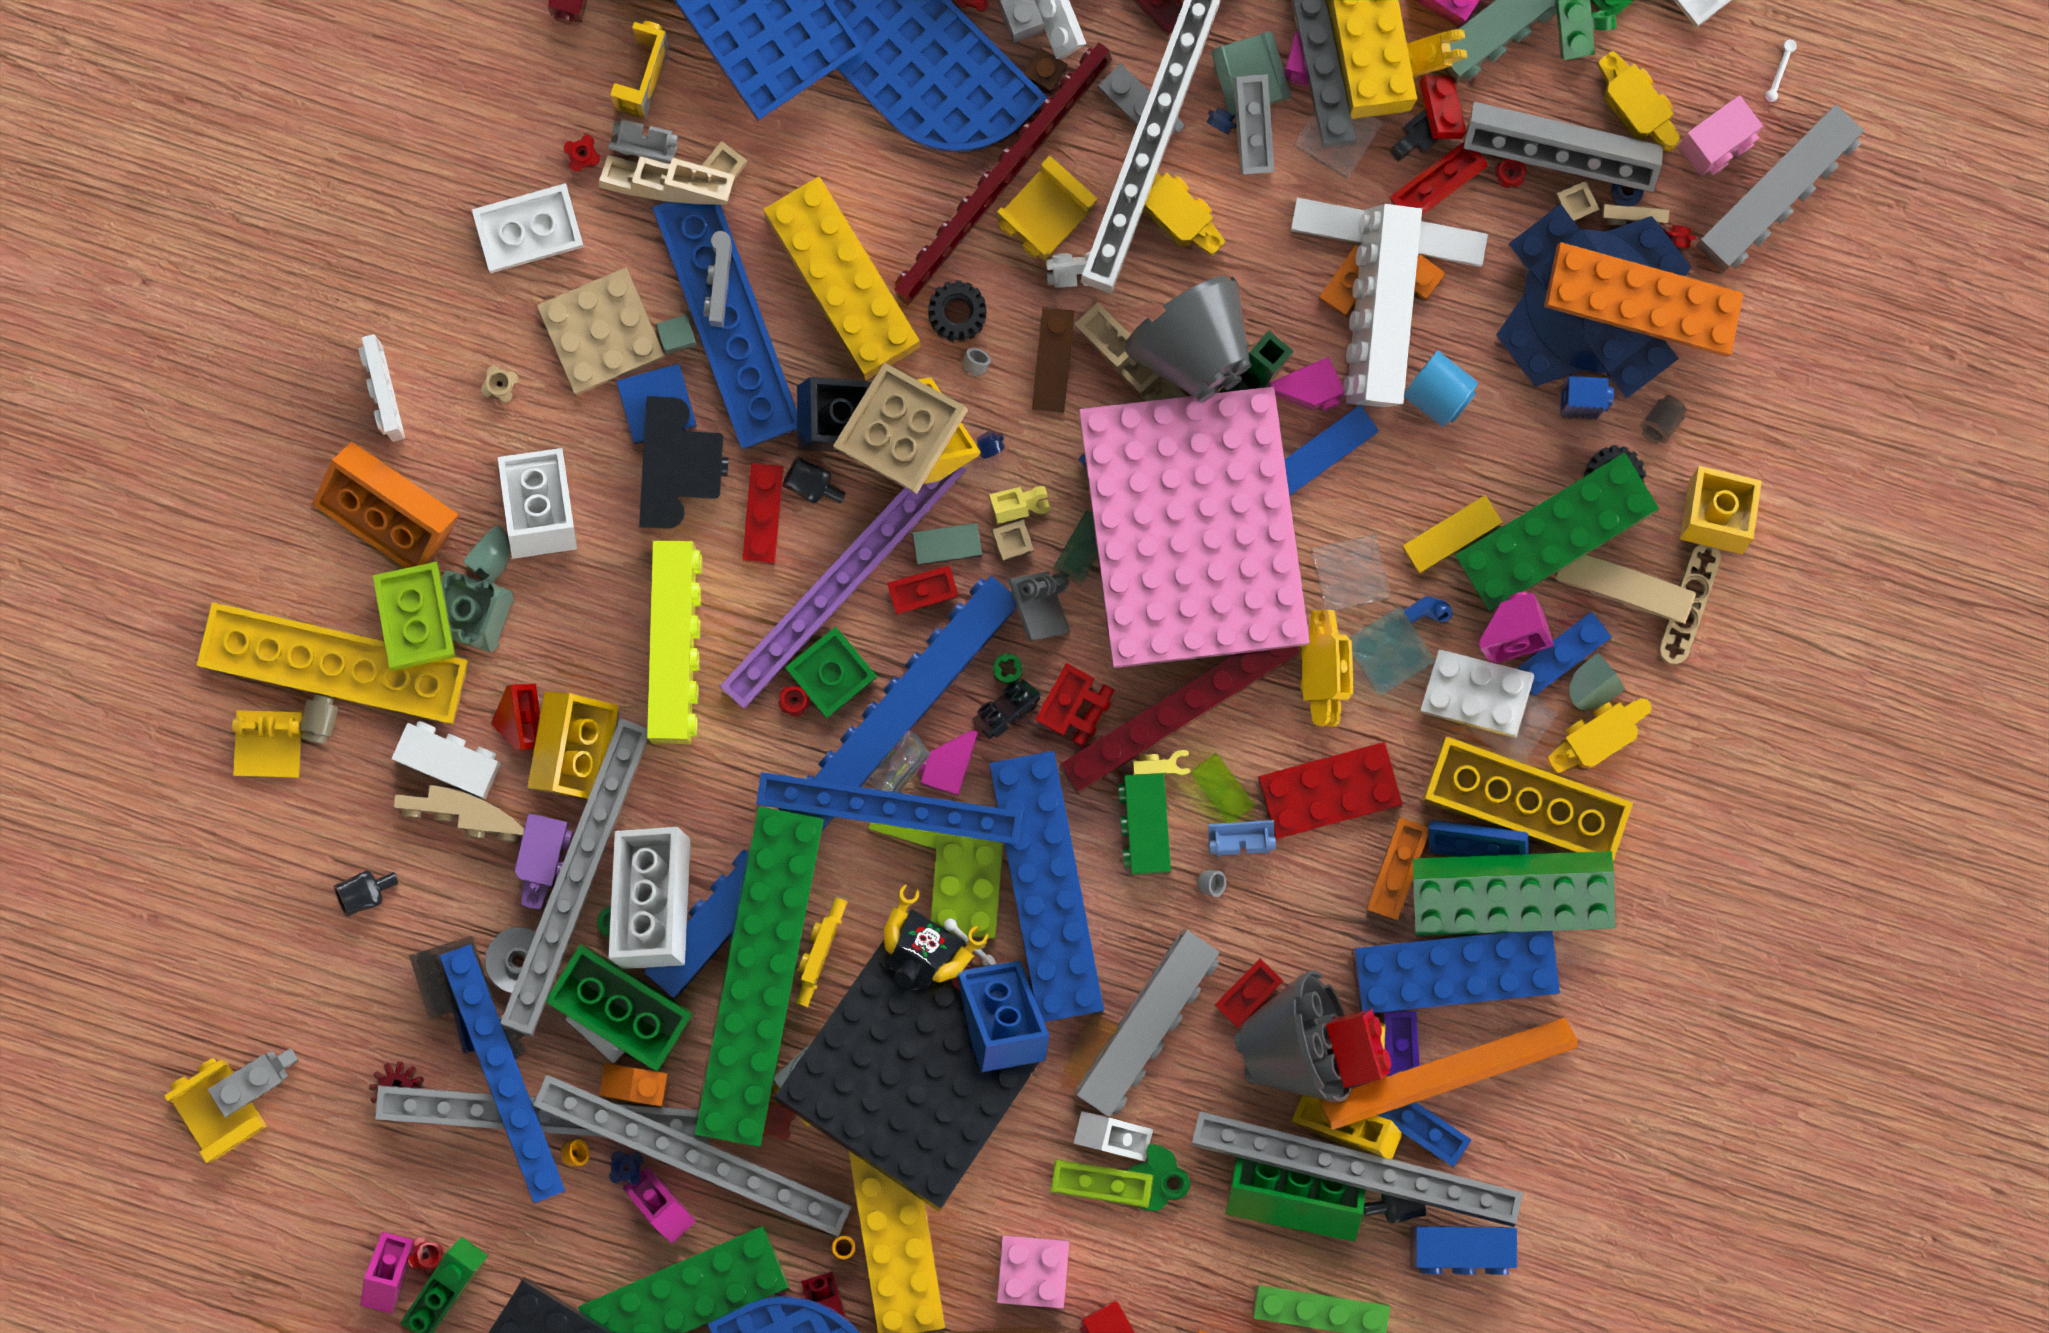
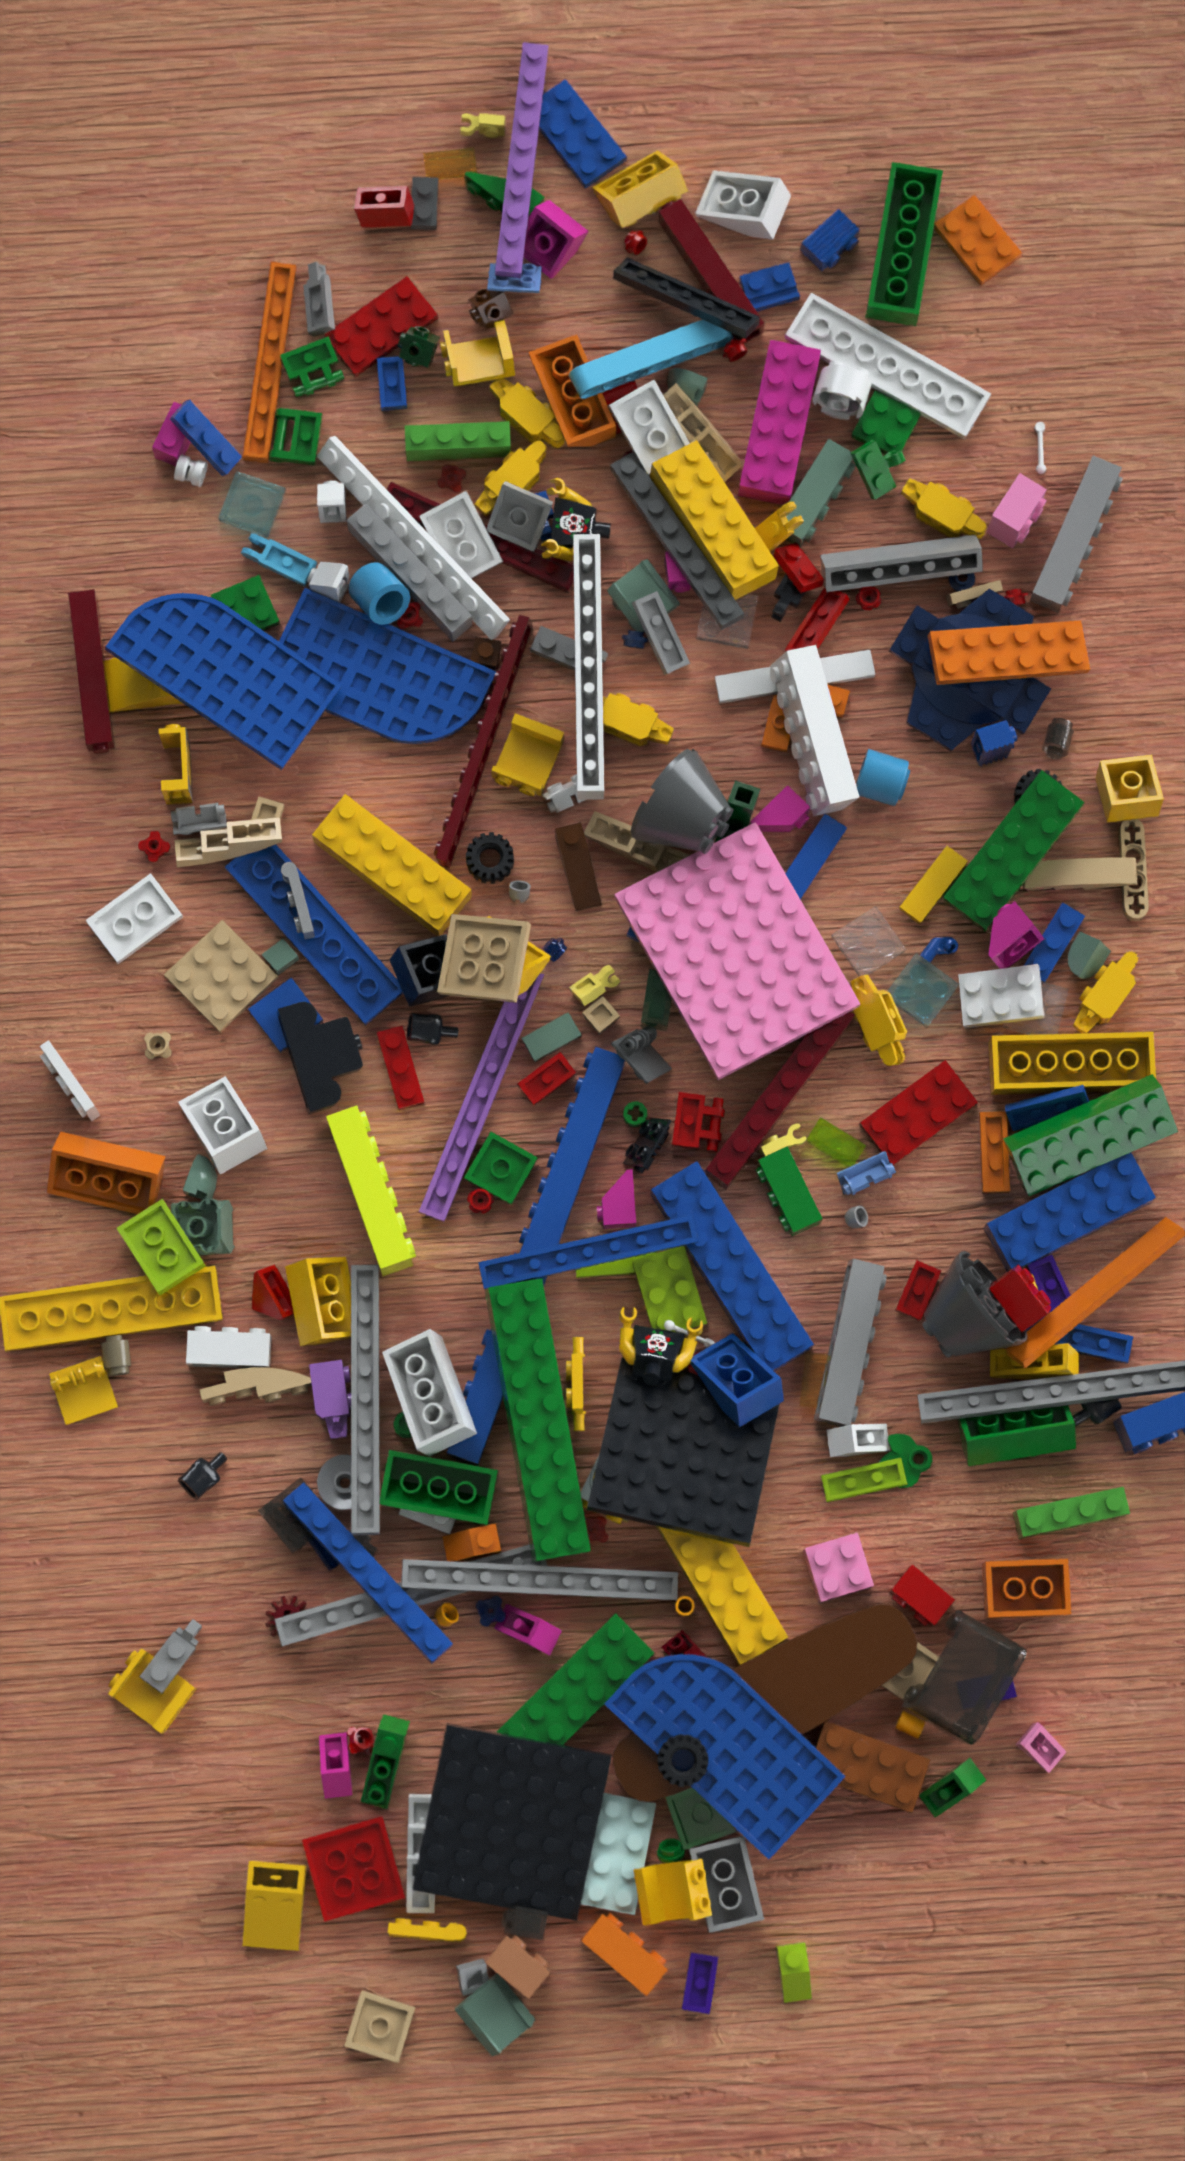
camera: 20 degrees left, 5 degrees down
(900, 764) = (582, 1216): clear plate -> none
(1578, 201) = (928, 599): tan plate -> none

